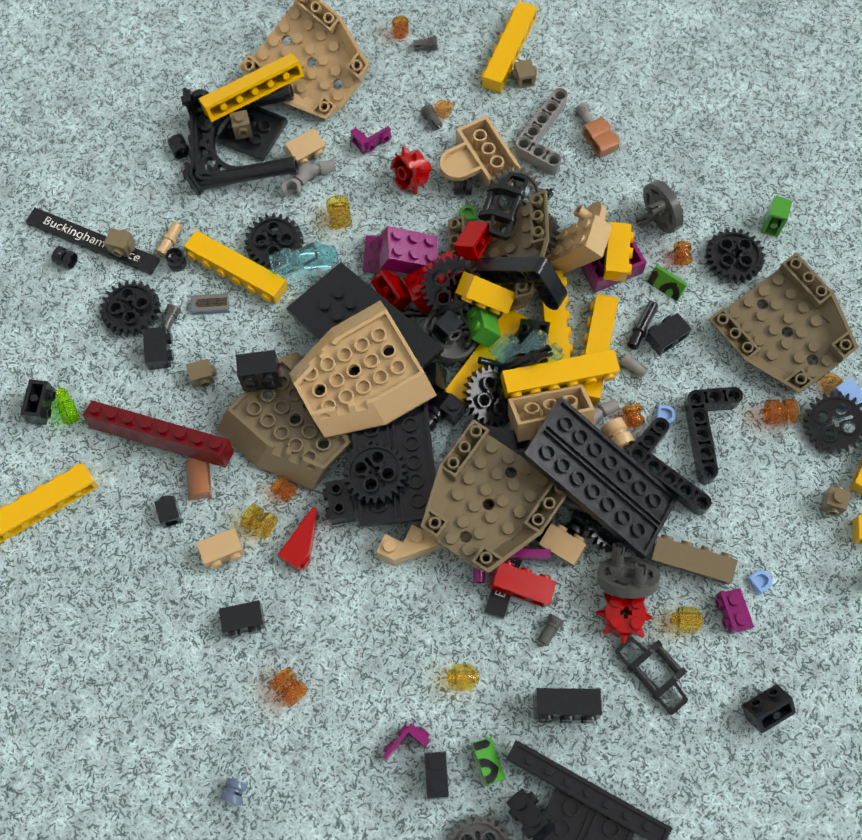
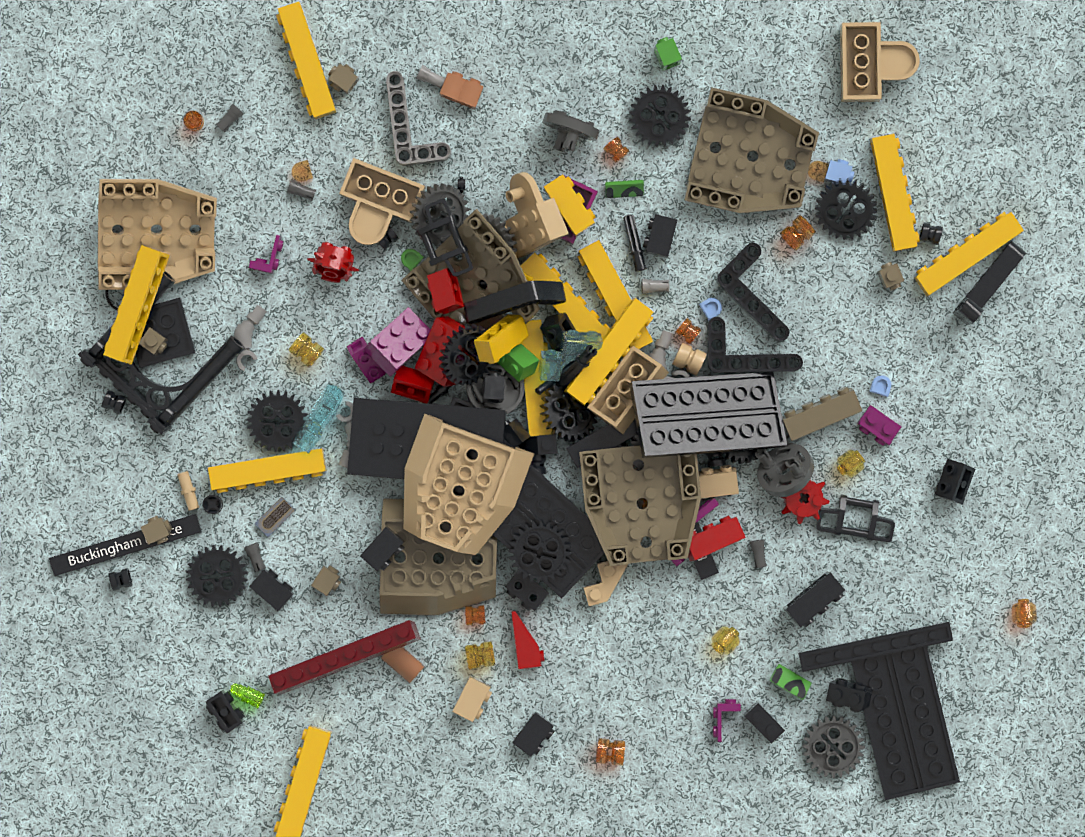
camera: 40 degrees left, 20 degrees up
(168, 511) = (405, 705): black brick -> none
(305, 146) = (223, 314): tan brick -> none

